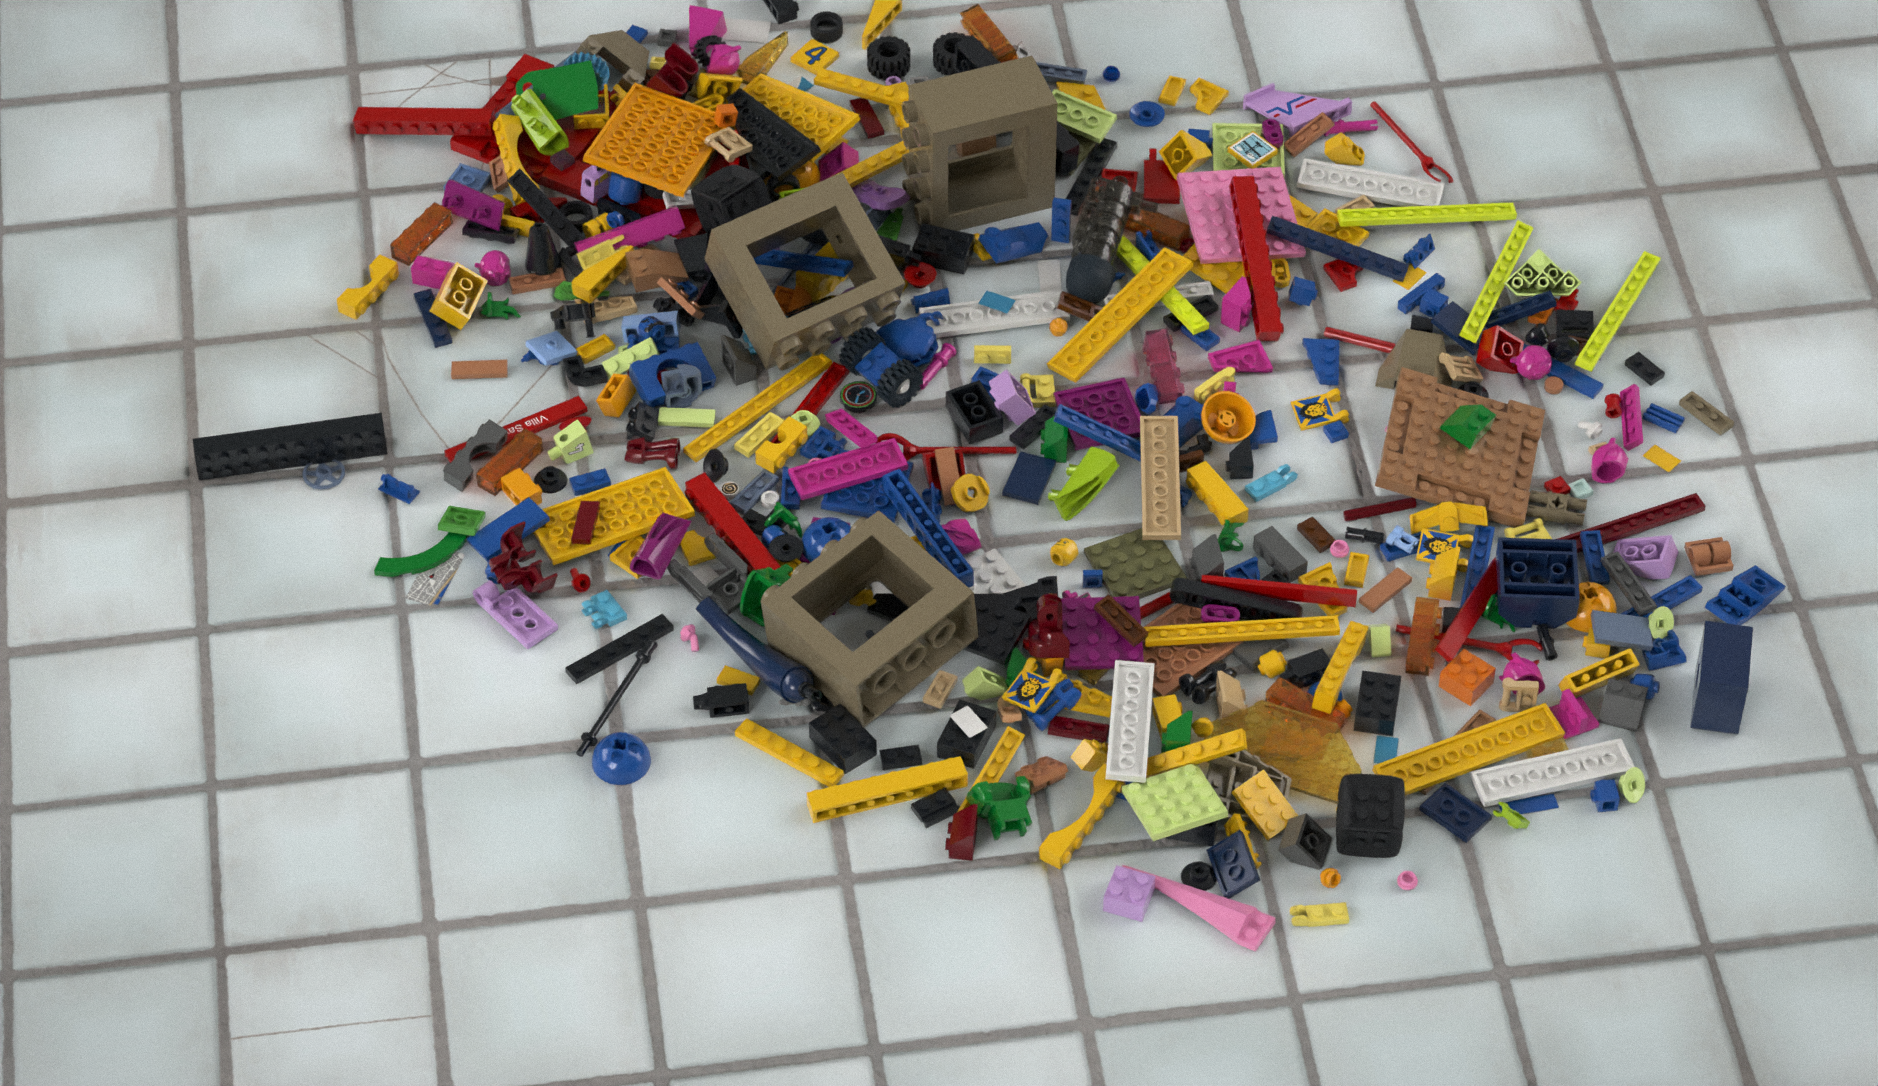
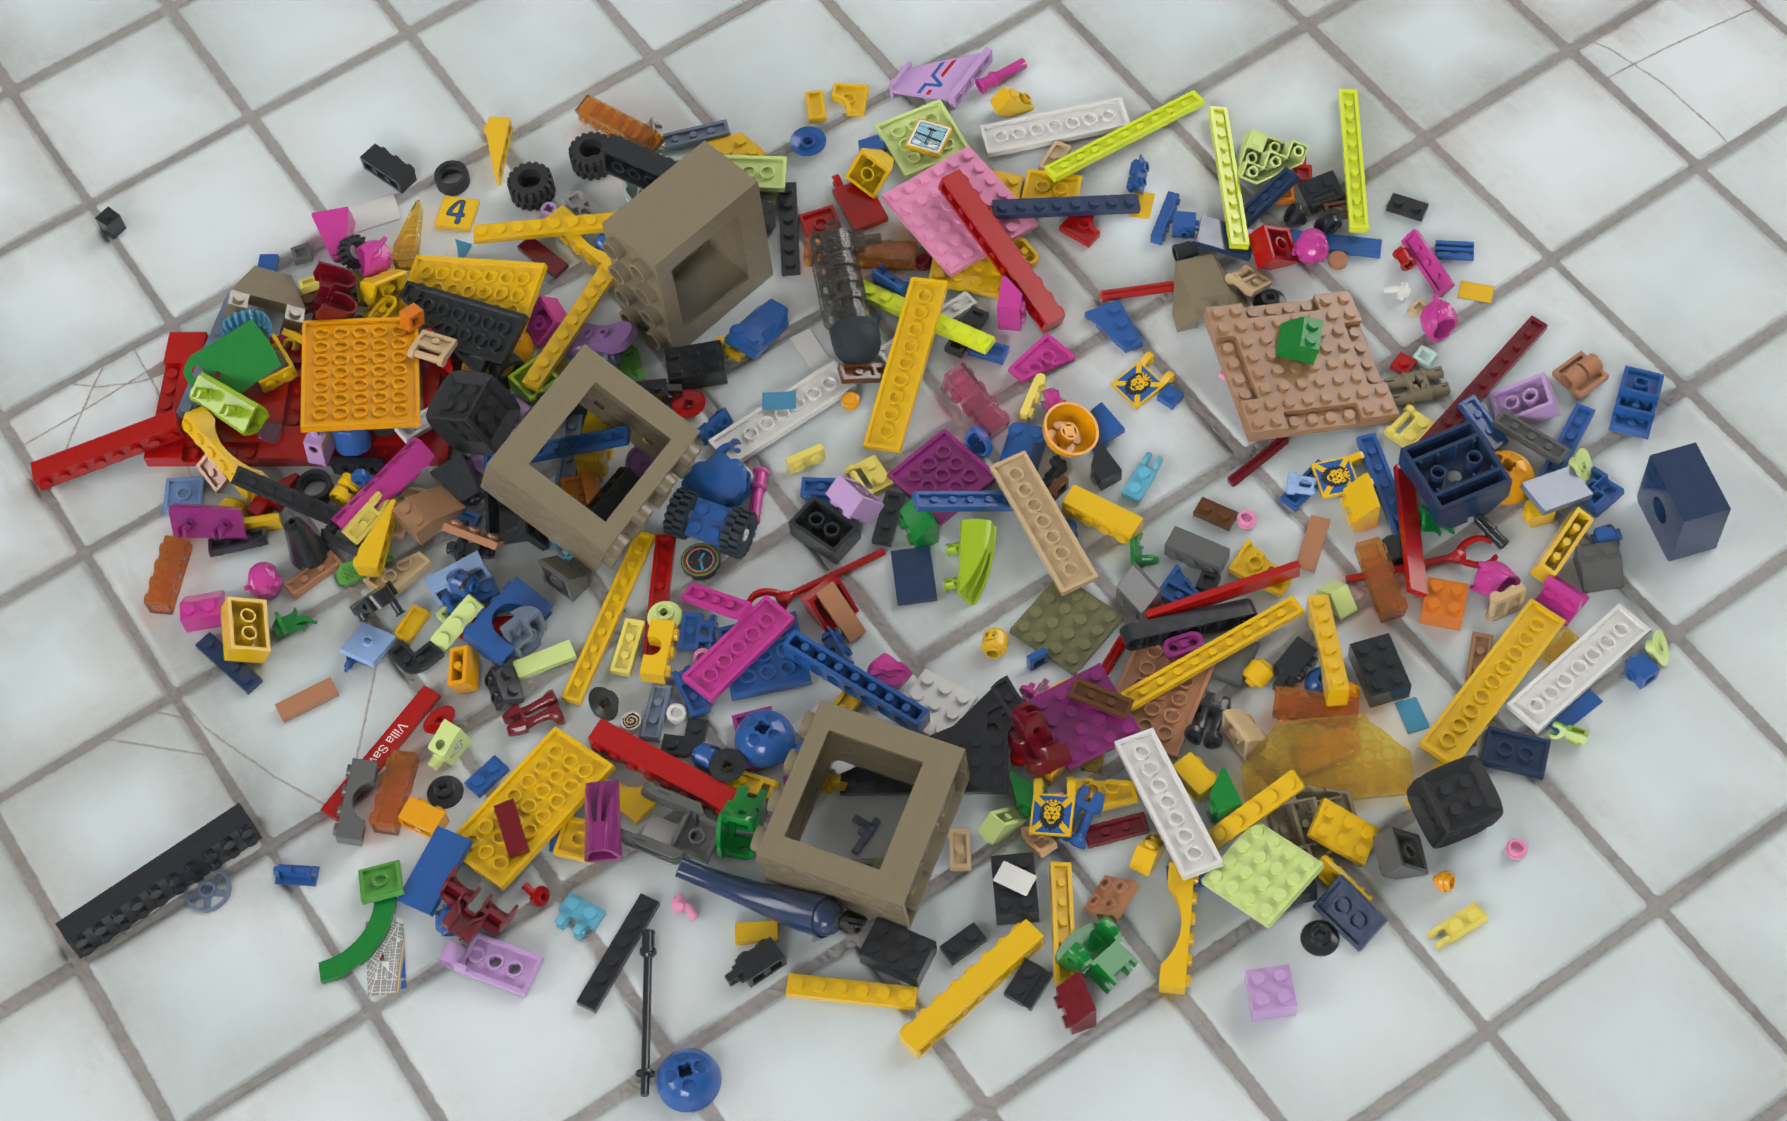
camera: 20 degrees left, 10 degrees up
(355, 301) = (140, 681): yellow arch -> none
(786, 516) = (700, 726): green piece -> none
(980, 495) = (863, 627): yellow plate -> none
(1061, 220) = (796, 289): blue plate -> none
(1111, 74) = (750, 113): clear blue plate -> none
(1202, 727) = (1238, 775): yellow tile -> none
(1234, 919) = (1382, 970): bright pink plate -> none
(1272, 132) = (935, 109): magenta plate -> none
(1302, 291) = (1058, 264): blue brick -> none
(1308, 134) = (970, 99): nougat tile -> none
(1356, 569) = (1273, 534): yellow tile -> none
(1364, 535) = (1261, 495): black axle -> none
(1426, 161) = (1090, 80): red piece -> none
(1448, 516) = (1329, 442): yellow plate -> none
(1706, 413) = (1490, 229): dark tan plate -> none

